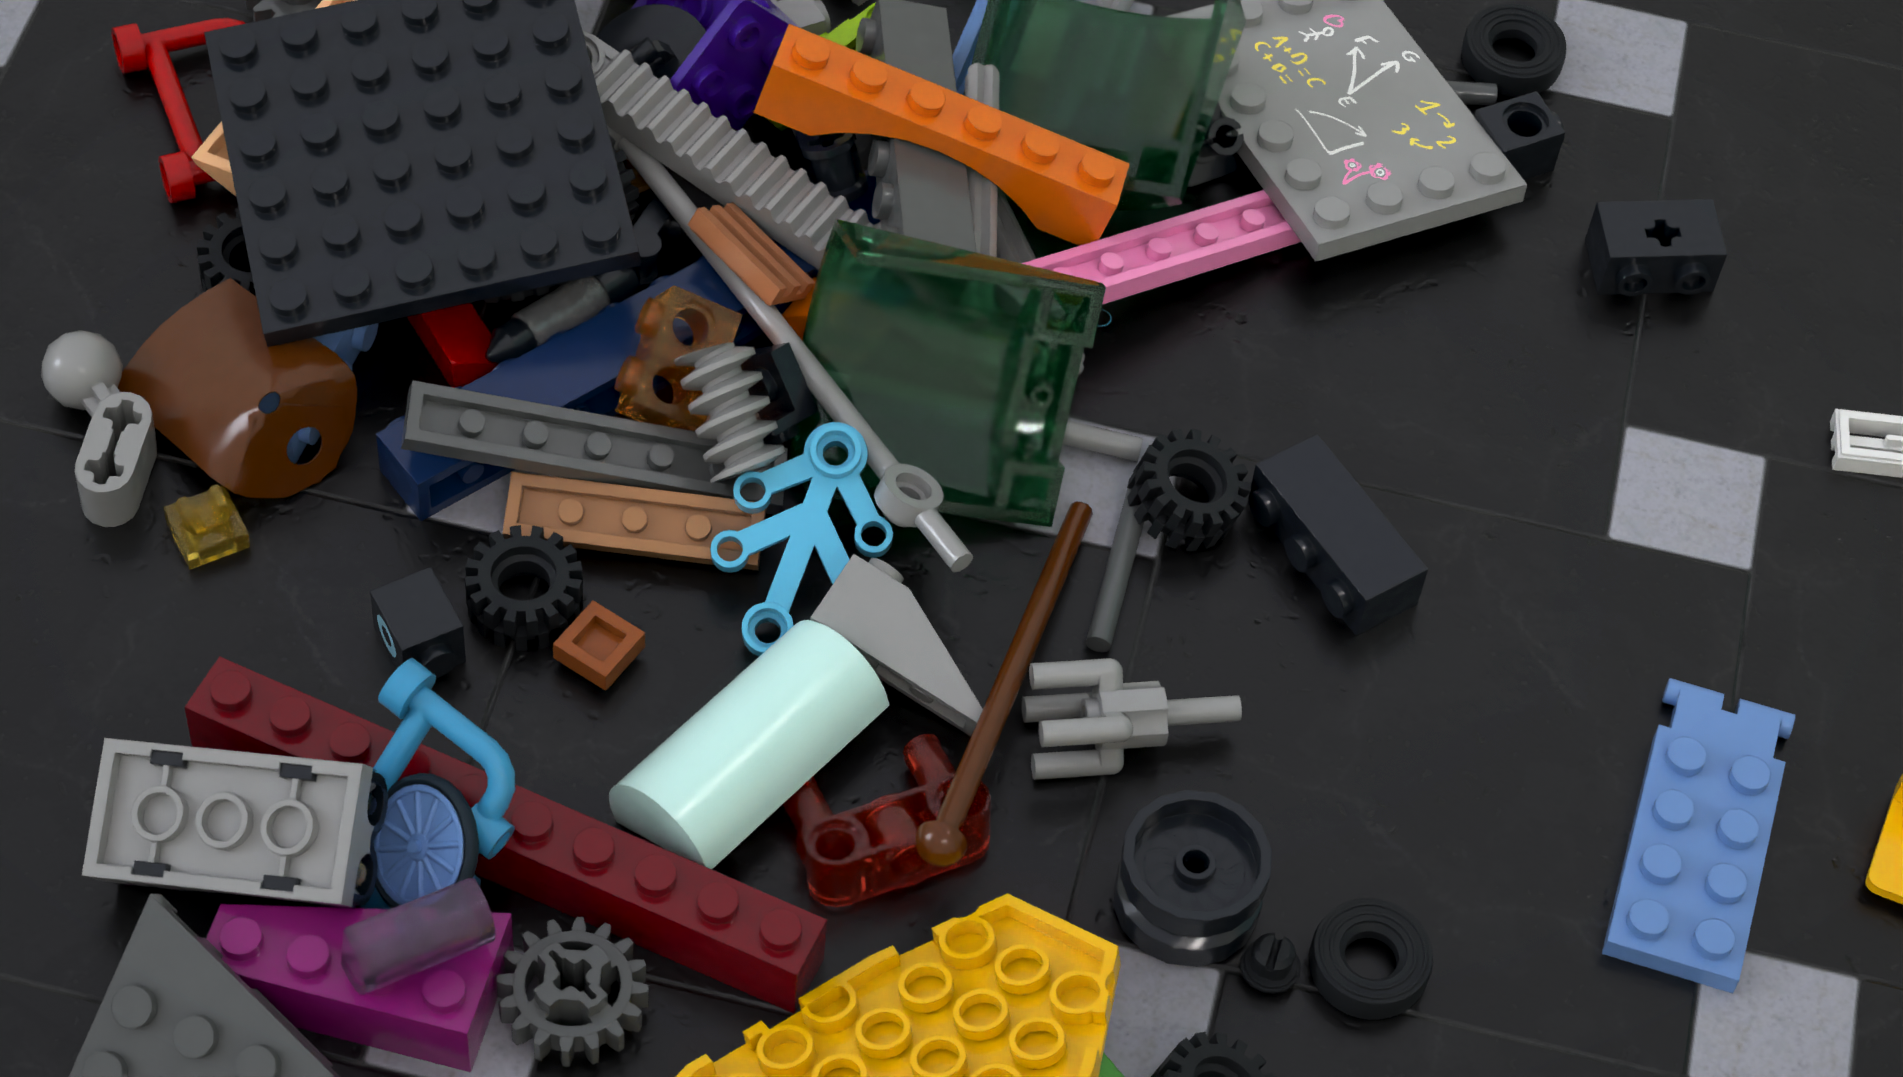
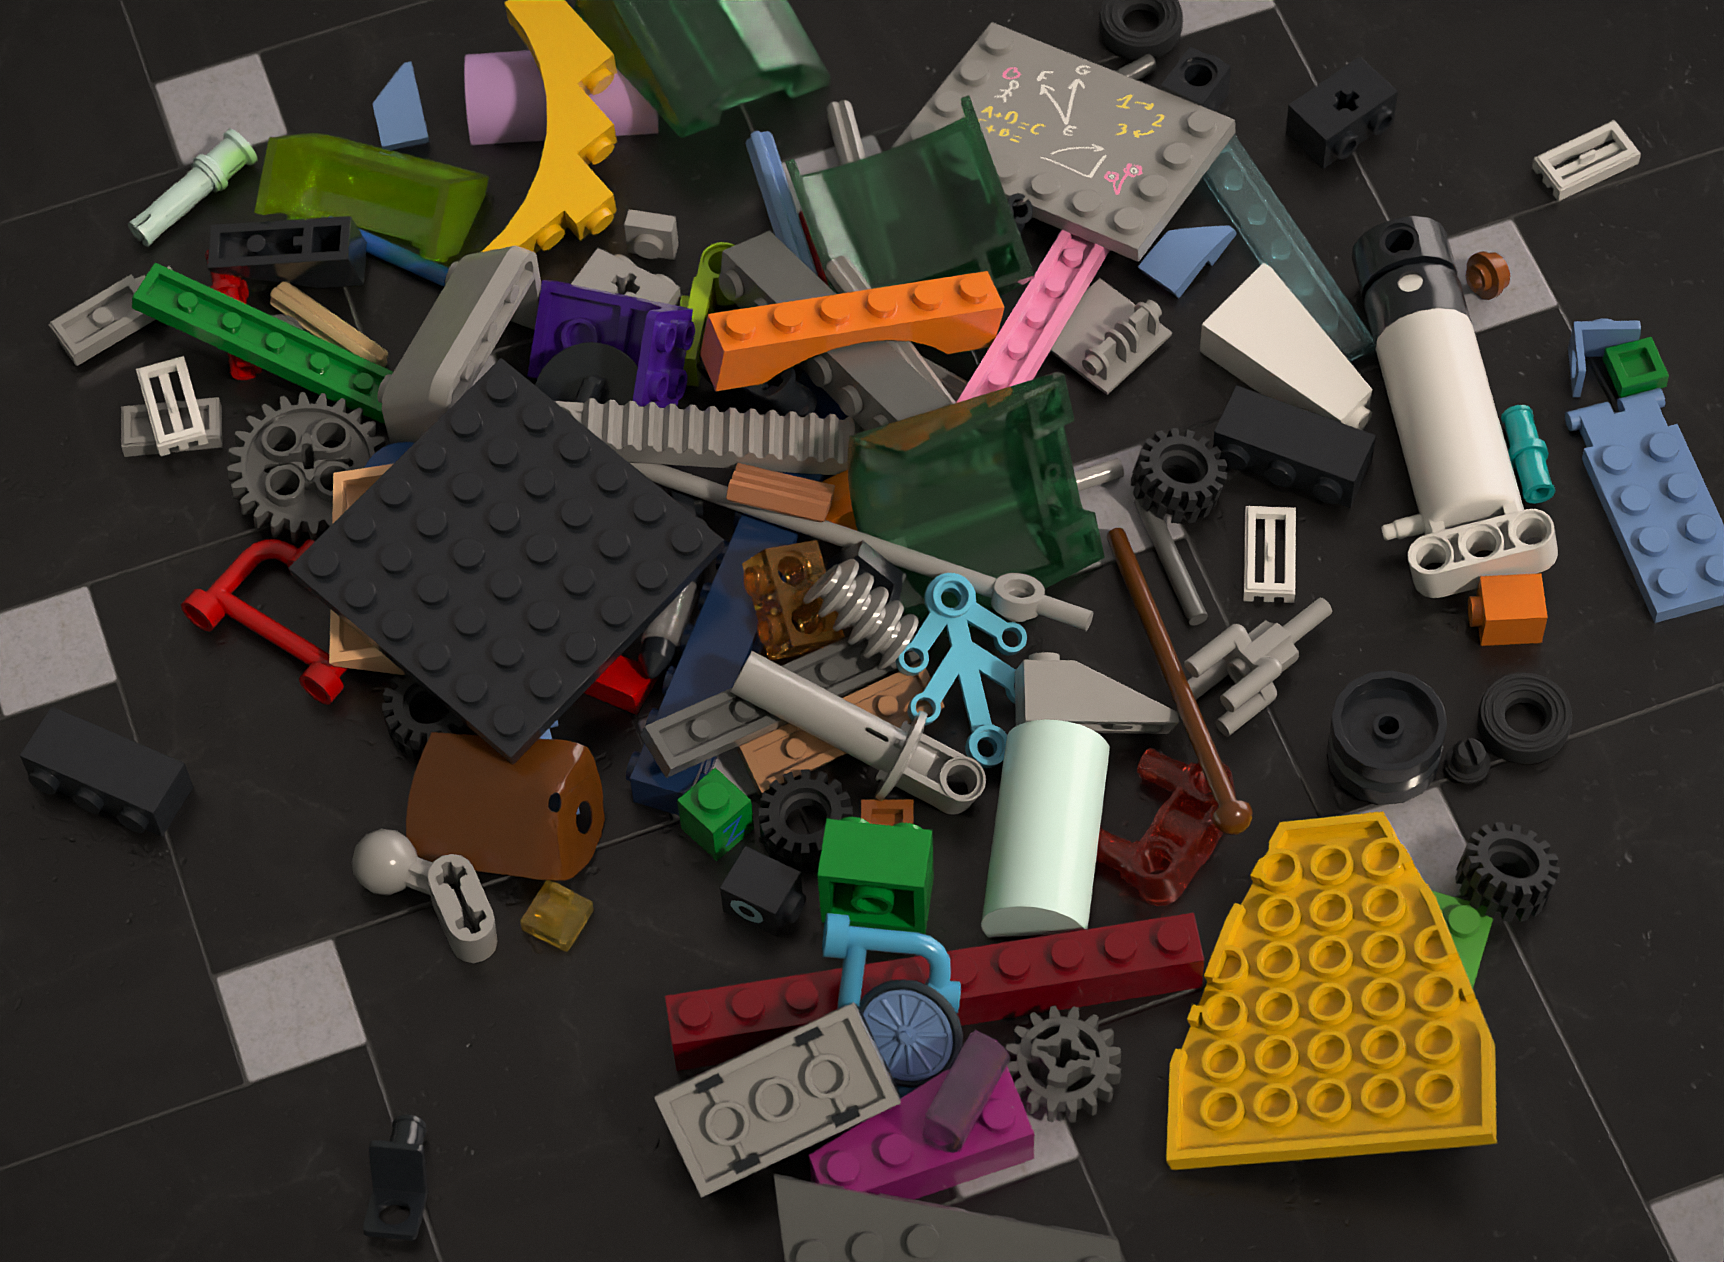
camera: 25 degrees left, 5 degrees up
(436, 522) = (715, 814): none -> green brick
(535, 676) = (876, 874): none -> green brick
(660, 575) = (900, 754): none -> light grey piece
(1201, 661) = (1269, 588): none -> white tile
(1230, 318) = (1109, 336): none -> light grey hinge
(1375, 285) = (1183, 254): none -> medium blue slope
(1400, 436) = (1283, 352): none -> white slope
(1439, 834) = (1509, 609): none -> orange brick
(1486, 353) = (1284, 248): none -> clear light blue tile
(1517, 599) = (1444, 415): none -> white piece
(1590, 693) = (1528, 454): none -> teal pin
(1689, 490) = (1487, 274): none -> dark orange plate
(1764, 626) = (1591, 339): none -> medium blue bracket
(1783, 677) = (1635, 367): none -> green plate

